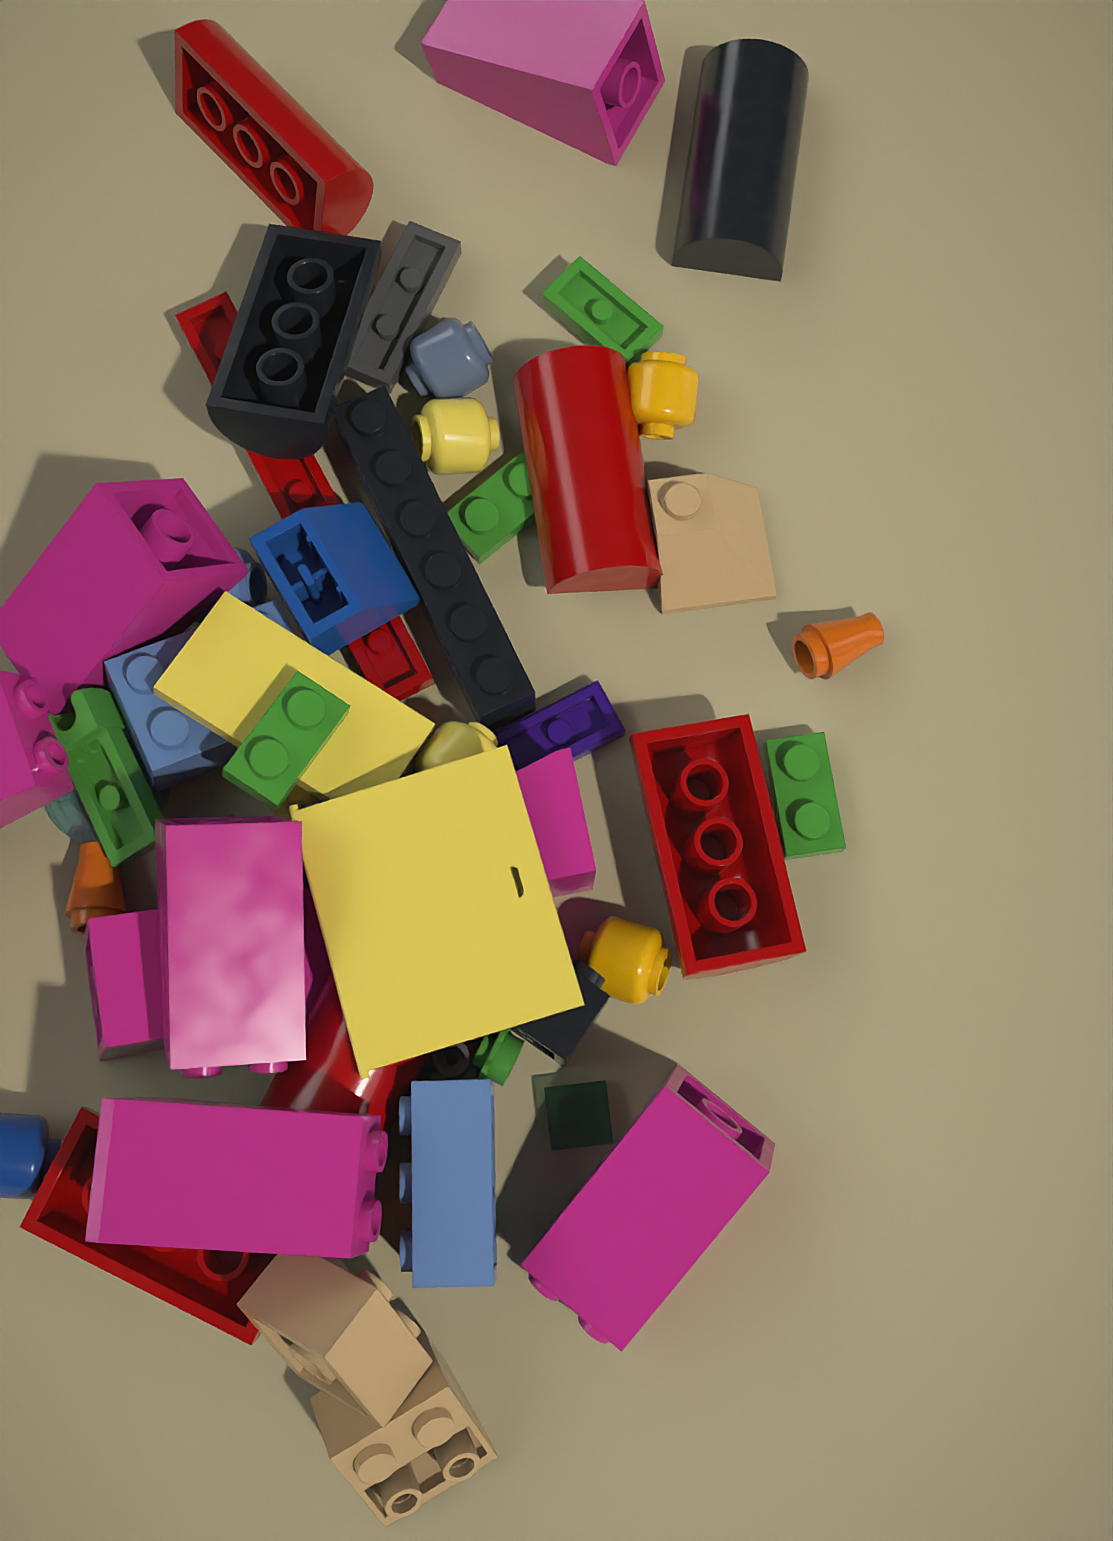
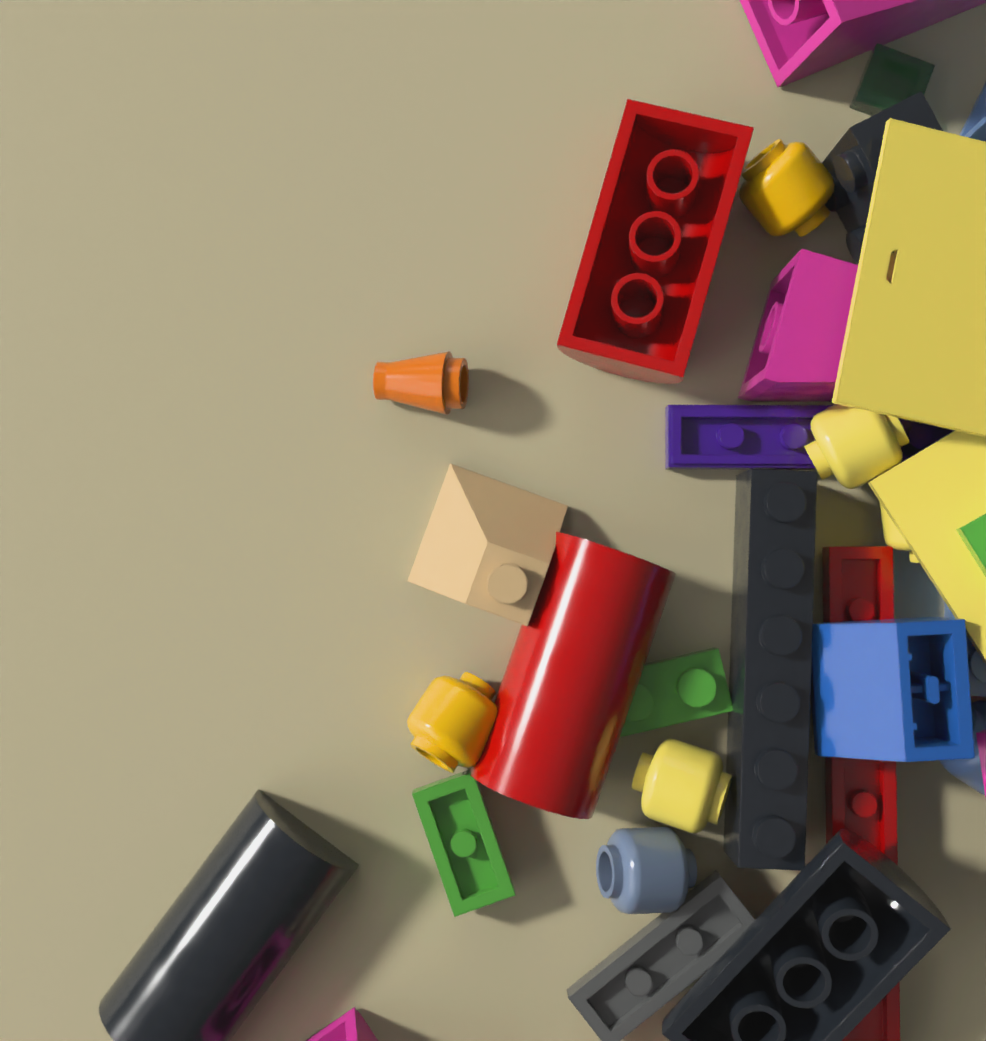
camera: 150 degrees left, 10 degrees up
(804, 796) = (533, 260): bright green plate -> none

